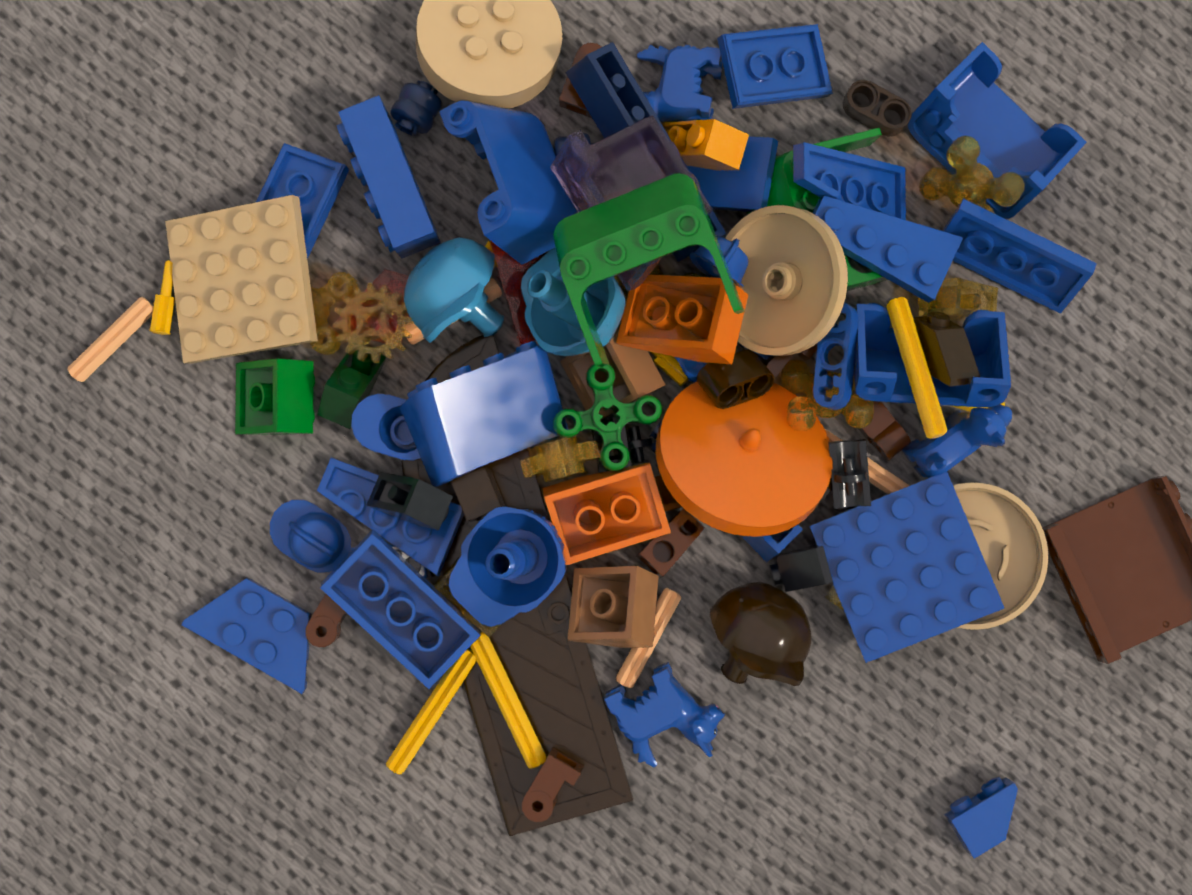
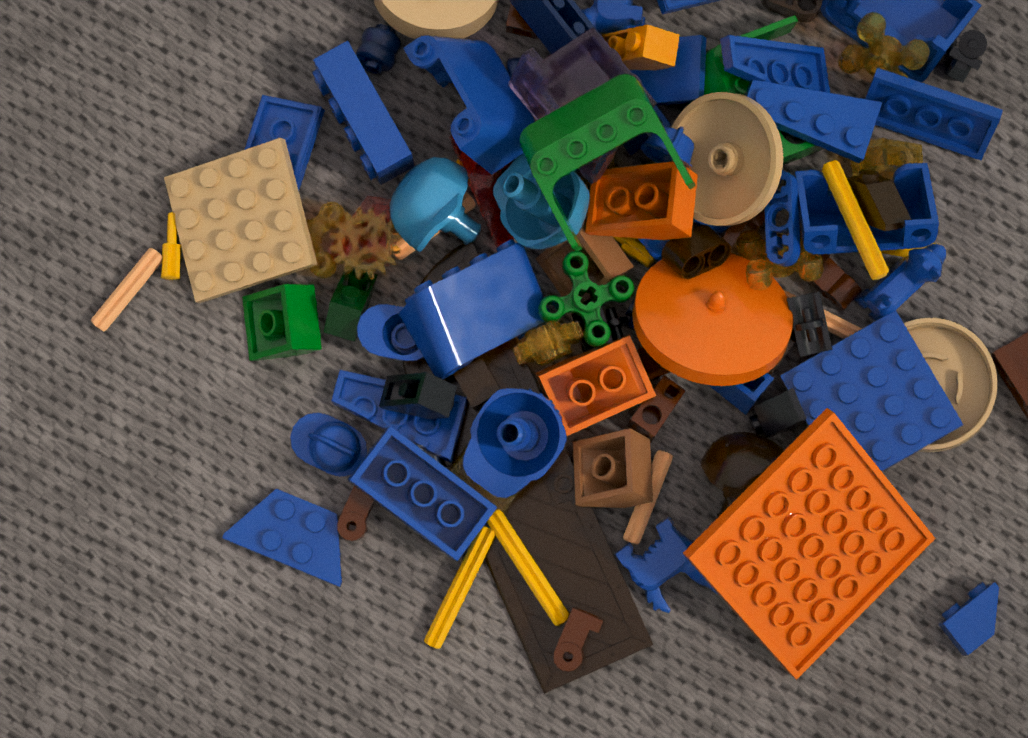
camera: 10 degrees left, 5 degrees down
(817, 720) = (810, 544): none -> orange plate
(1061, 198) = (971, 46): none -> black hips

